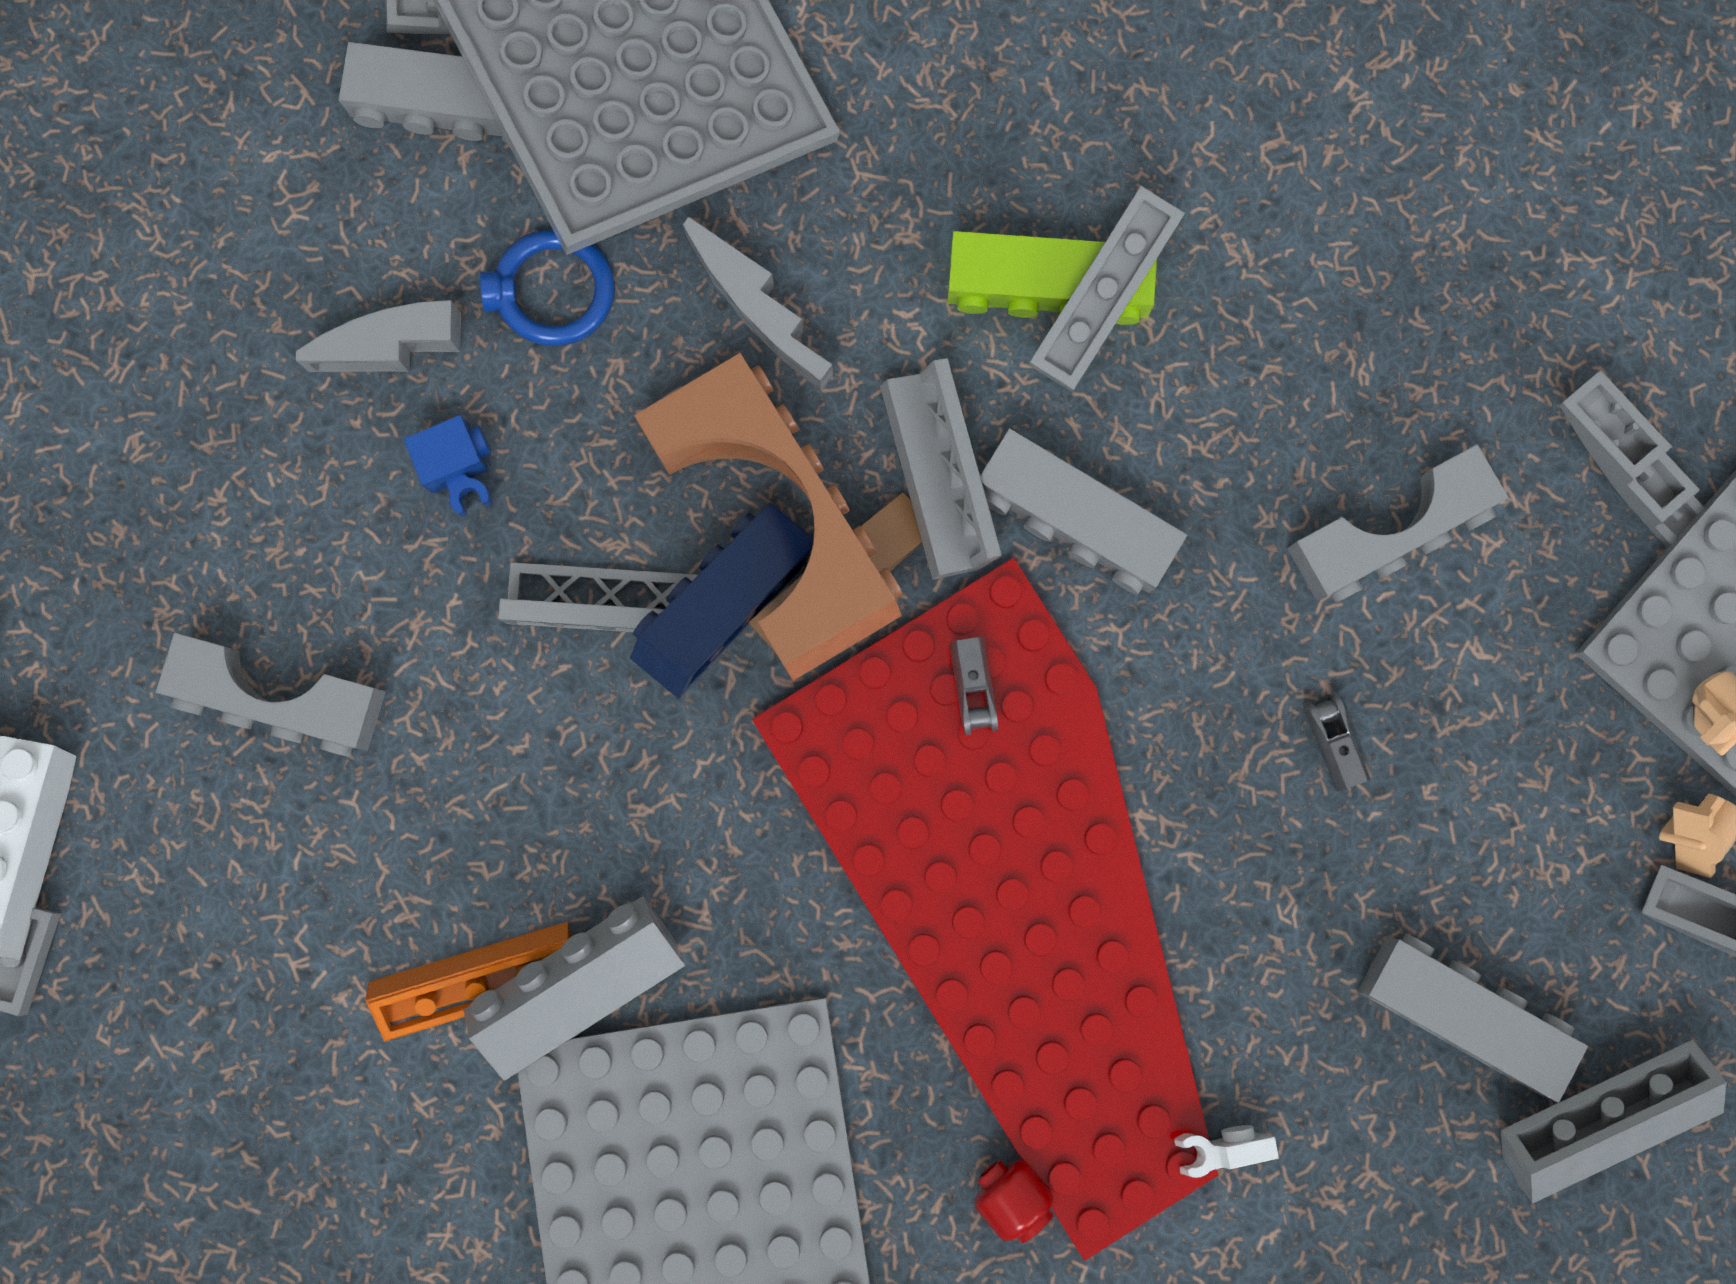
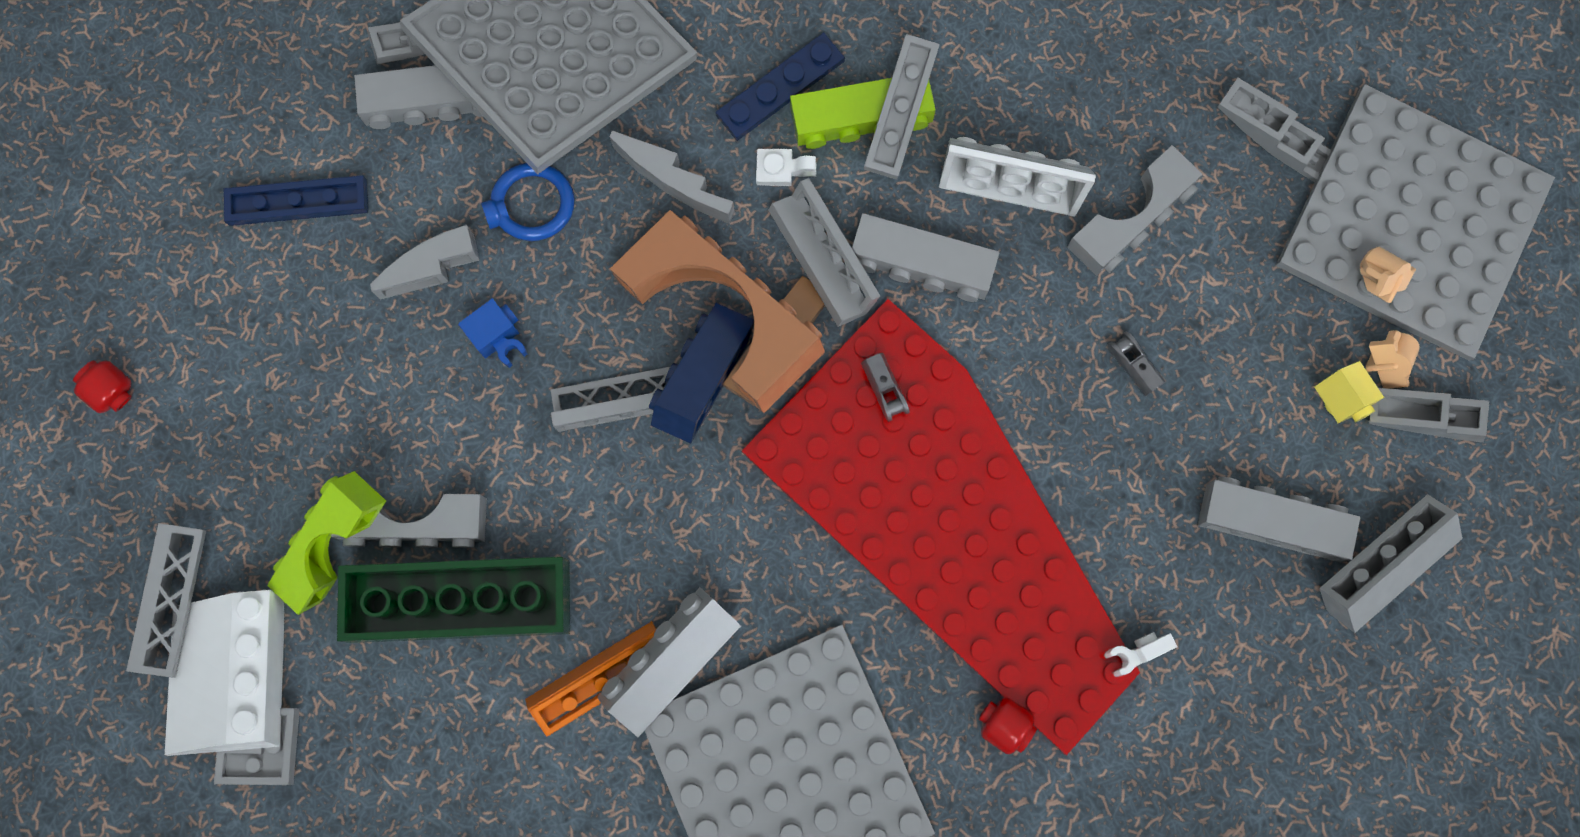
camera: 15 degrees left, 5 degrees down
(112, 728) = (305, 572): none -> lime arch
(225, 200) = (295, 200): none -> dark blue plate
(301, 825) = (453, 599): none -> dark green brick
(910, 327) = (777, 167): none -> white plate
(944, 209) = (777, 86): none -> dark blue plate
(1242, 430) = (1015, 176): none -> white slope
(1626, 867) = (1349, 393): none -> light yellow brick

